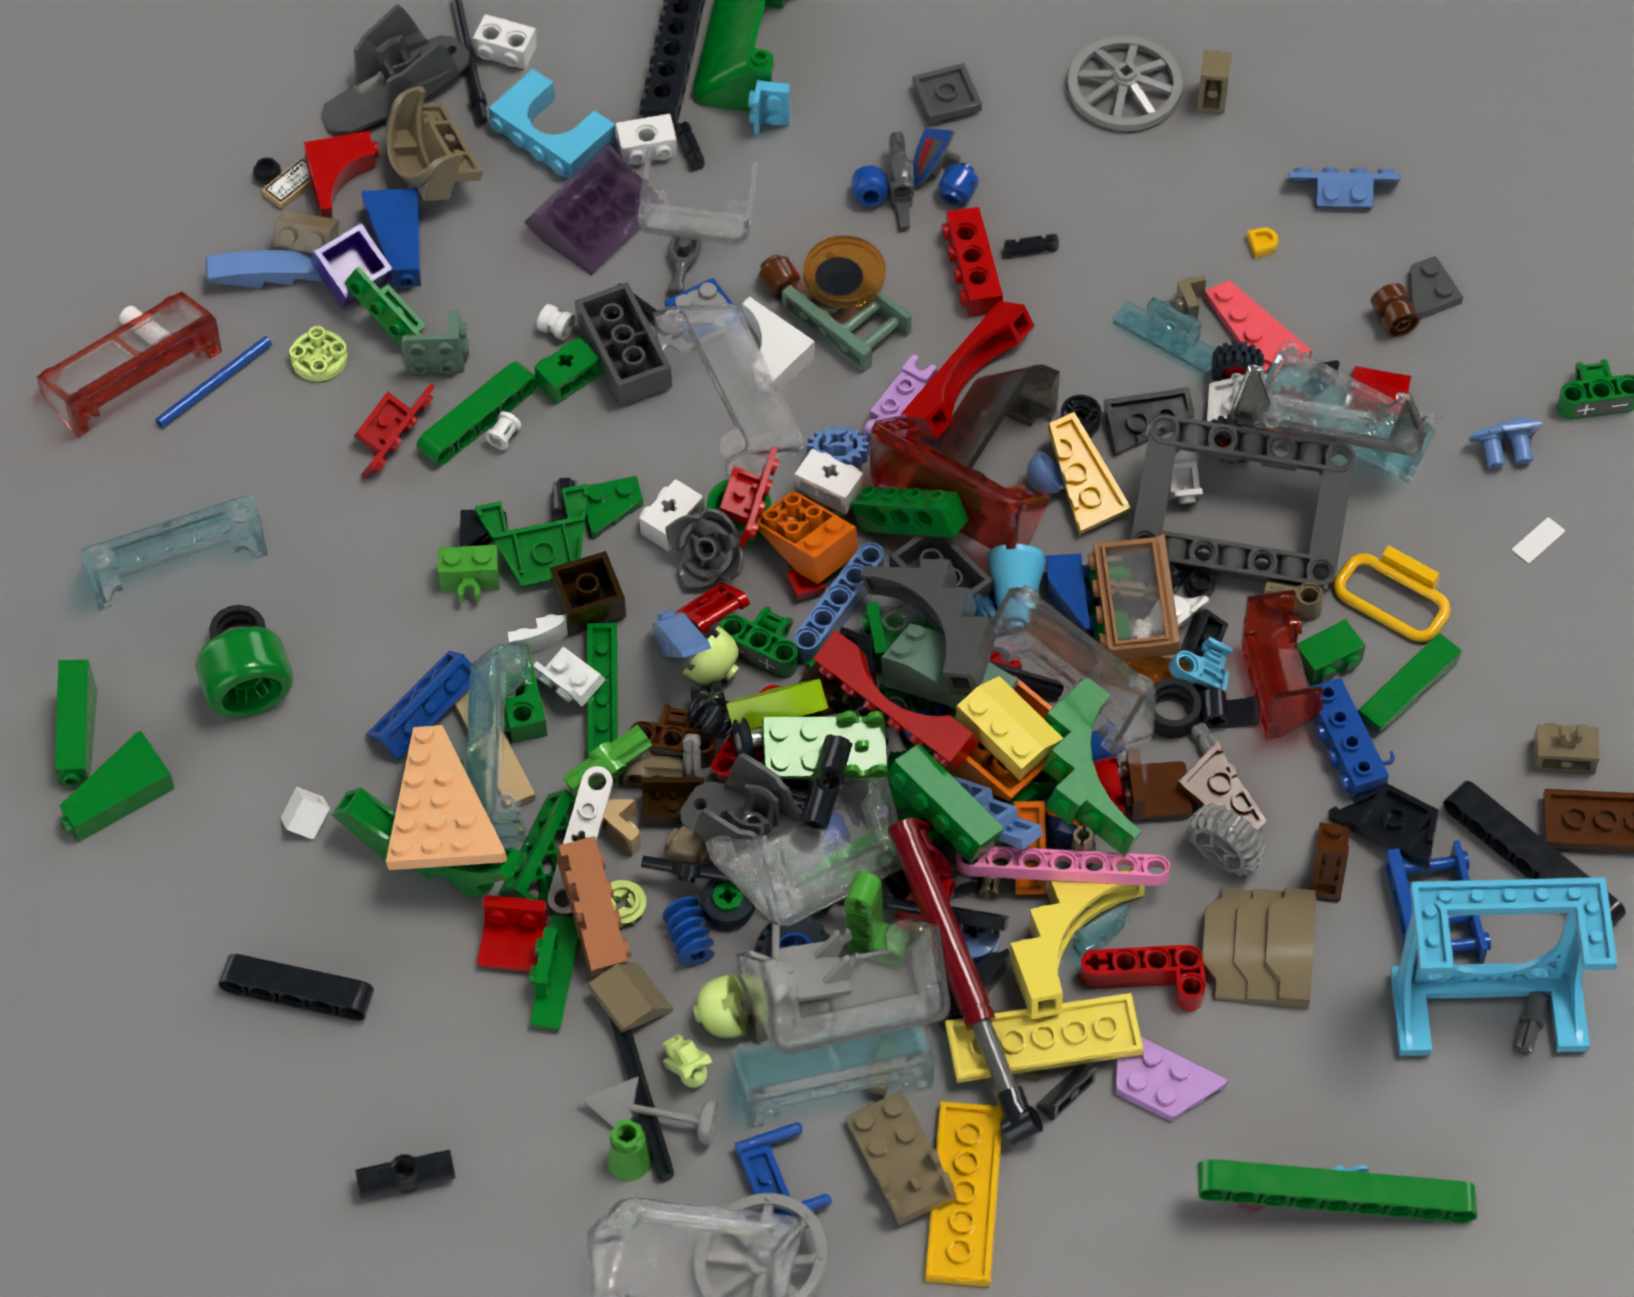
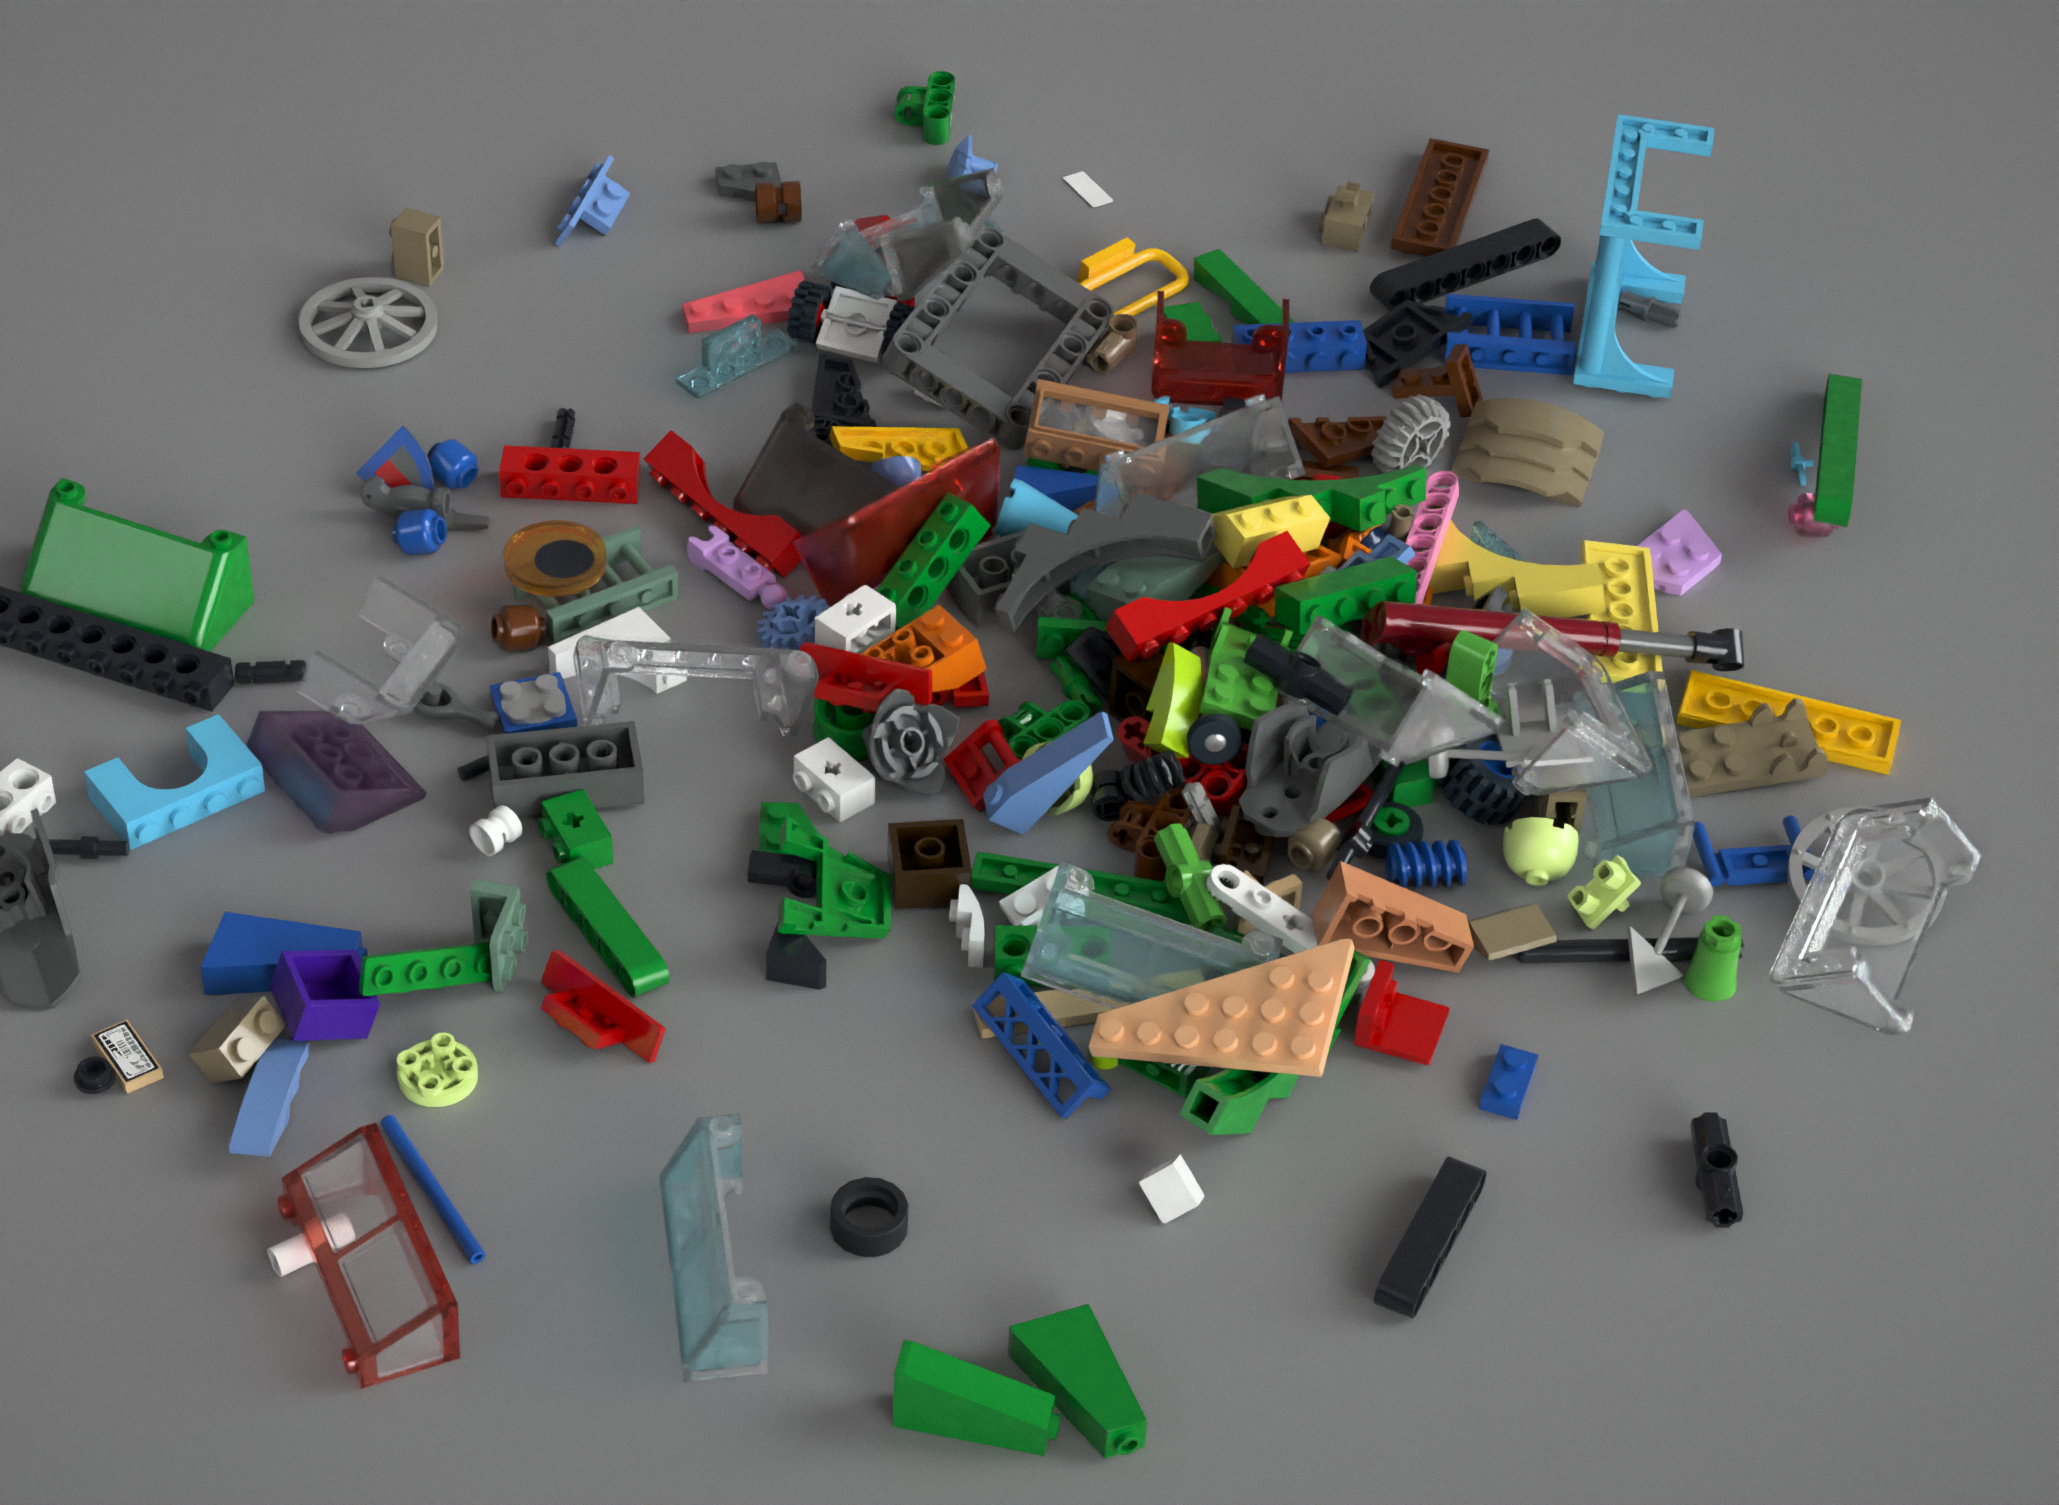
camera: 80 degrees left, 15 degrees down
(244, 672) = (960, 1192): green wheel -> none
(335, 162) = (128, 991): red arch -> none
(428, 160) = (172, 886): dark tan piece -> none
(468, 569) = (852, 970): bright green brick -> none
(474, 1023) = (1508, 1081): none -> blue plate
(503, 430) = (644, 907): white bush -> none
(553, 972) = (1461, 992): green bracket -> none
(645, 133) = (245, 693): white brick -> none
(769, 104) = (262, 579): medium azure bracket -> none
(837, 614) = (1014, 667): medium blue beam -> none
(946, 93) = (310, 450): dark grey plate -> none
(1067, 1090) = (1677, 613): black slope -> none
(1145, 975) = (1554, 510): red beam -> none
(1187, 294) = (693, 331): dark tan bracket -> none
(1262, 241) = (637, 276): yellow tile -> none

